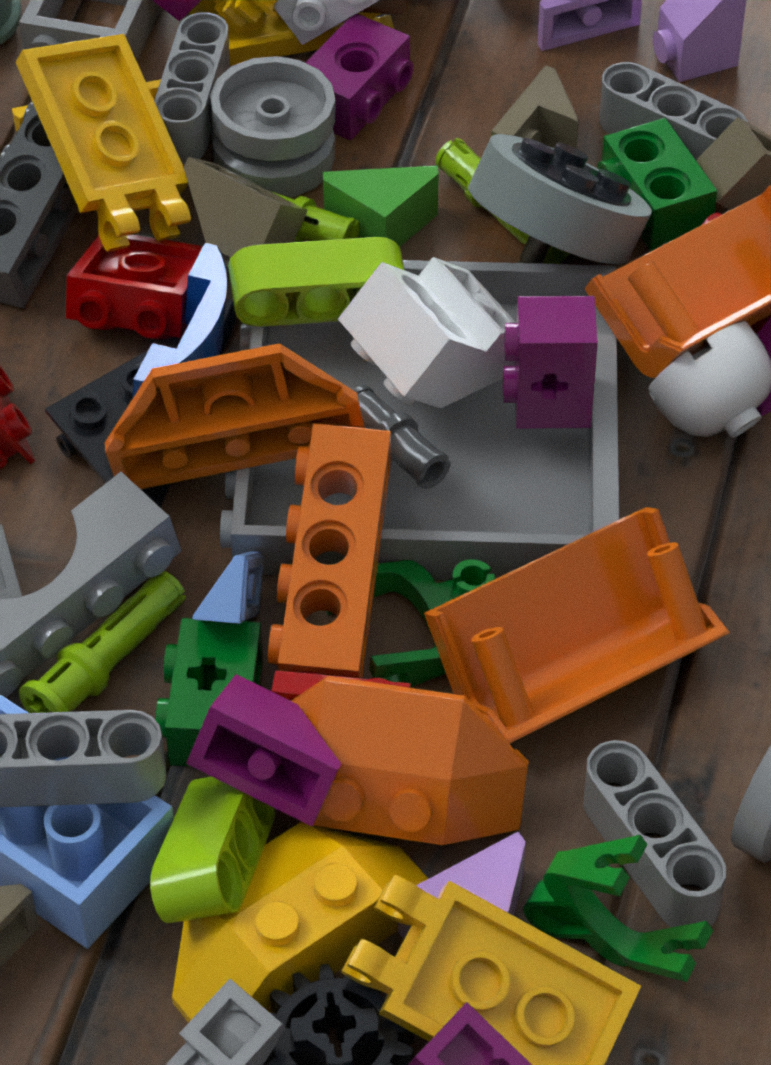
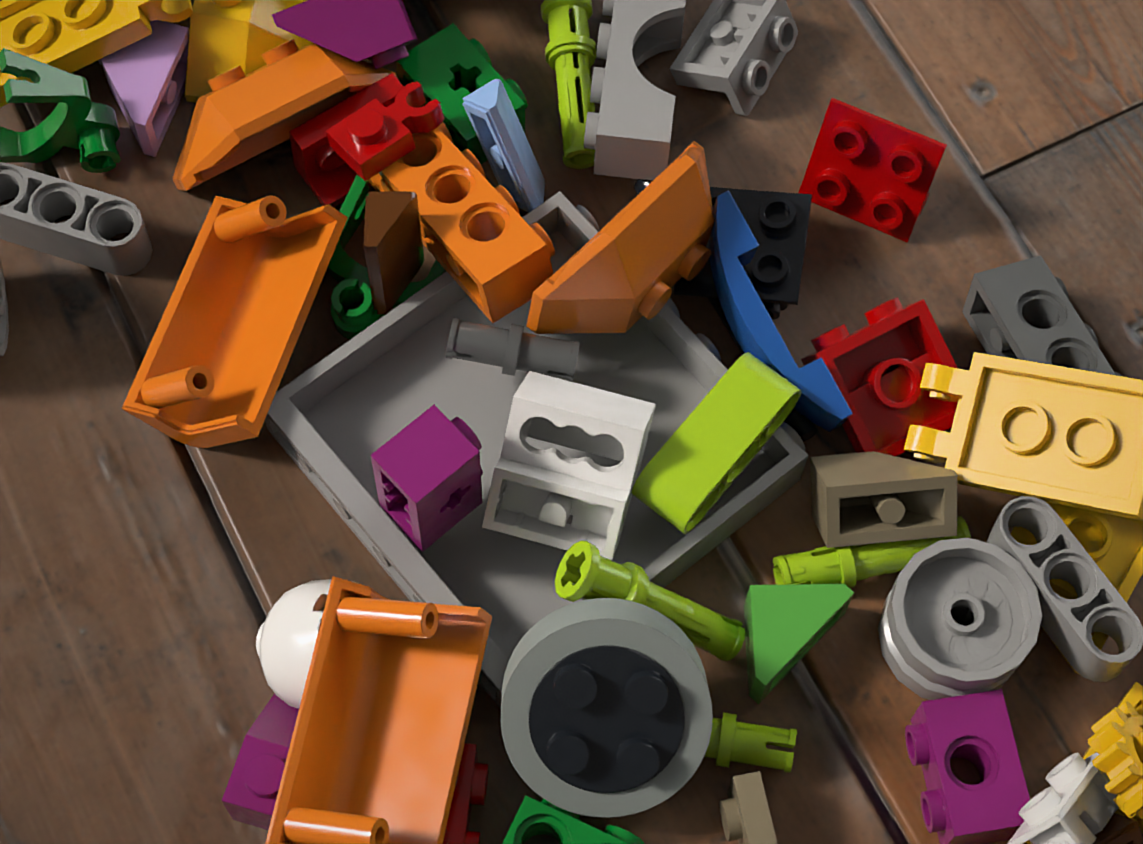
camera: 135 degrees right, 15 degrees up
(344, 632) = (381, 134): none -> red plate
(418, 548) = (391, 245): none -> reddish brown slope
(478, 243) = (591, 576): none -> lime pin

